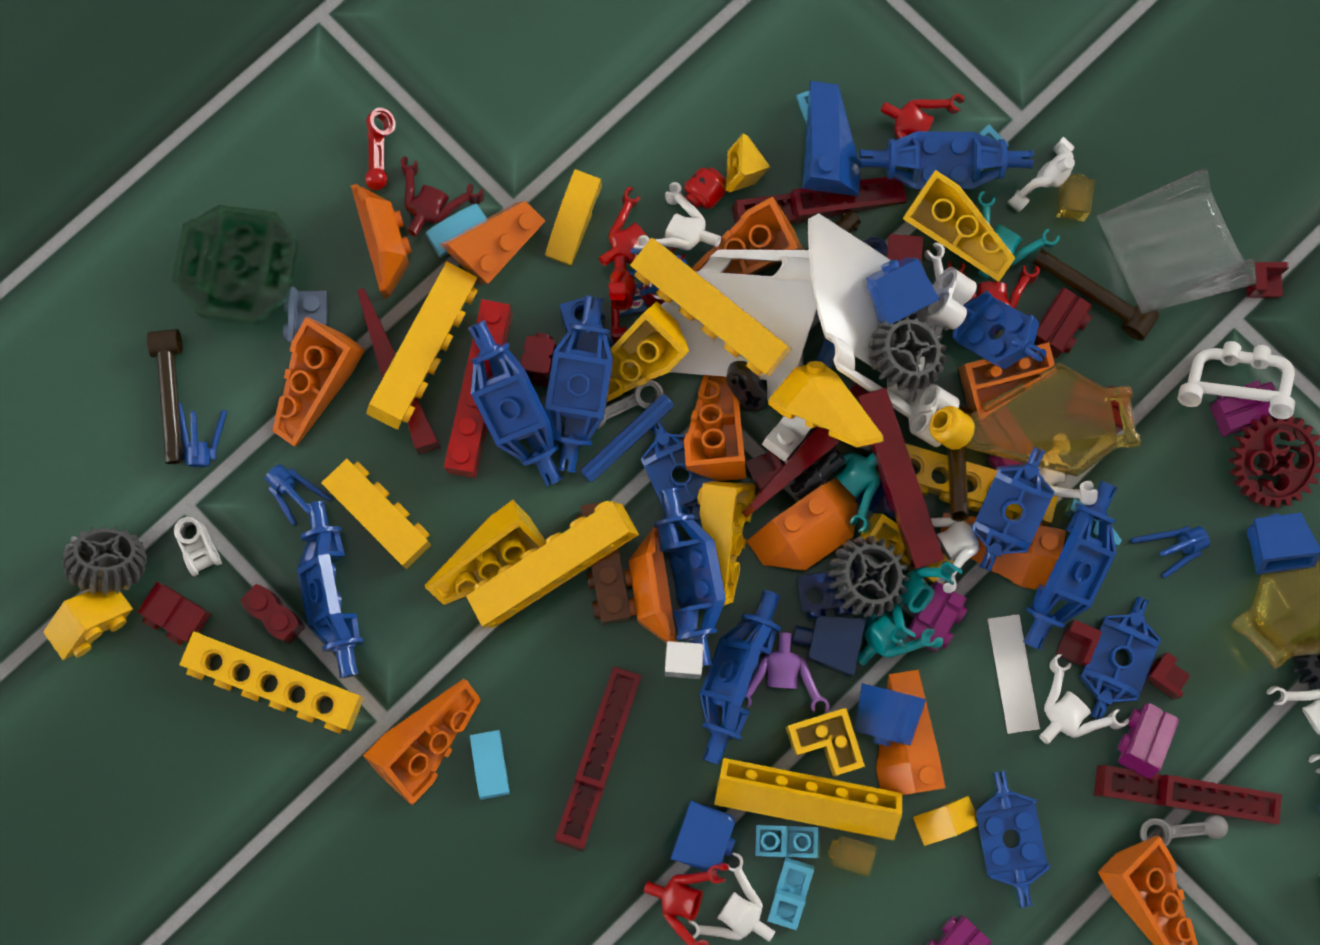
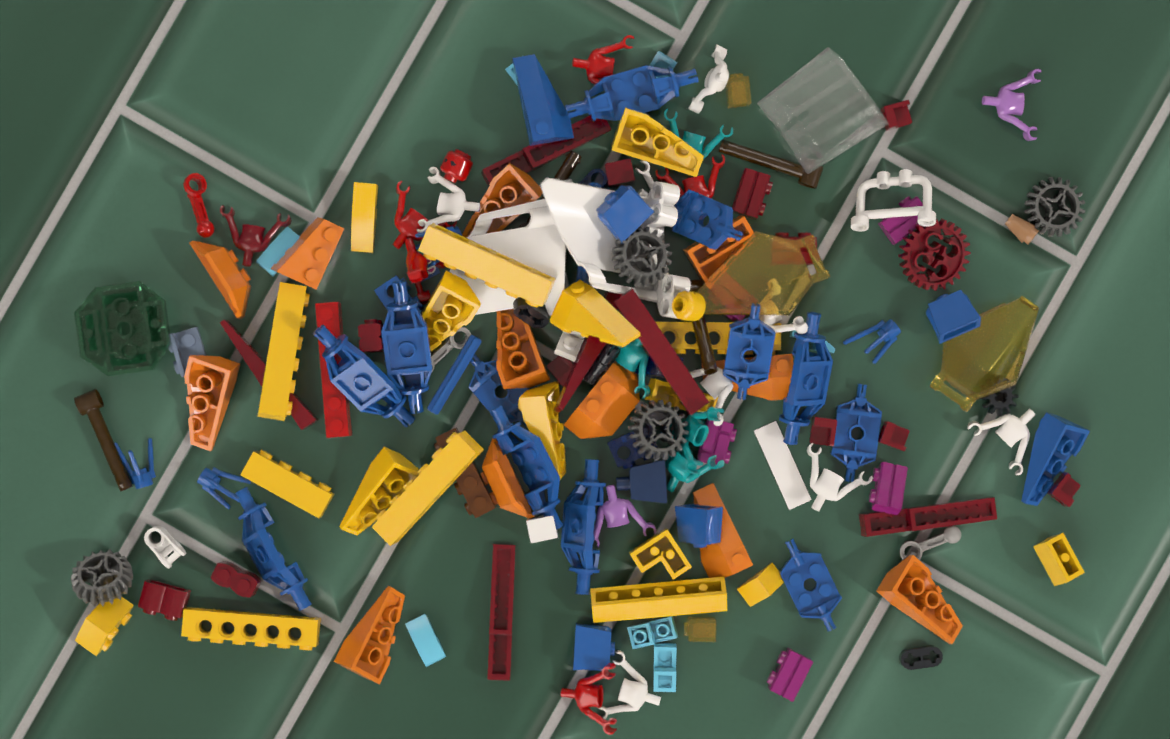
camera: 15 degrees left, 10 degrees up
(744, 164) = (480, 138): yellow slope -> none

